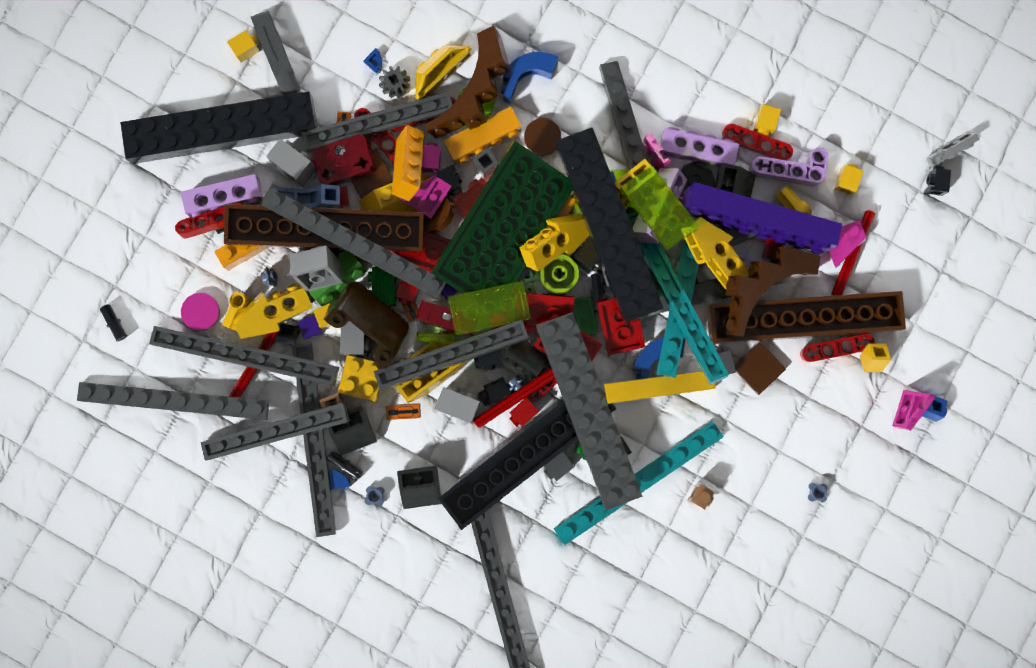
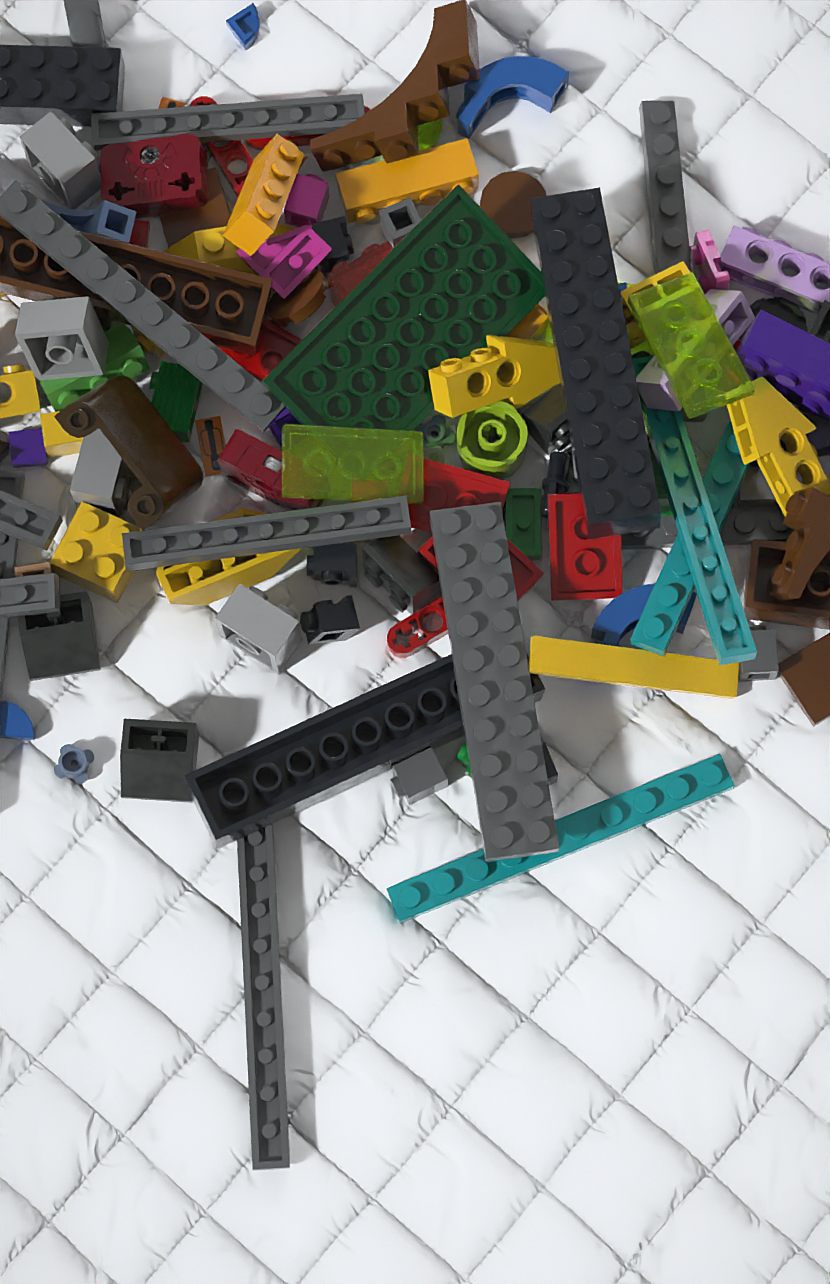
camera: 20 degrees right, 10 degrees down
(344, 465) = (33, 699): black axle -> none
(393, 75) = (276, 74): dark grey gear -> none
(407, 293) = (215, 420): red brick -> none
(408, 411) = (159, 628): orange sticker -> none
(435, 335) = (243, 499): clear neon green tile -> none
(439, 68) = (358, 54): yellow wedge -> none
(514, 398) = (364, 639): red axle -> none
(515, 383) = (372, 615): sand blue plate -> none
(523, 412) = (375, 667): red brick -> none
(701, 496) = (671, 883): medium nougat brick -> none

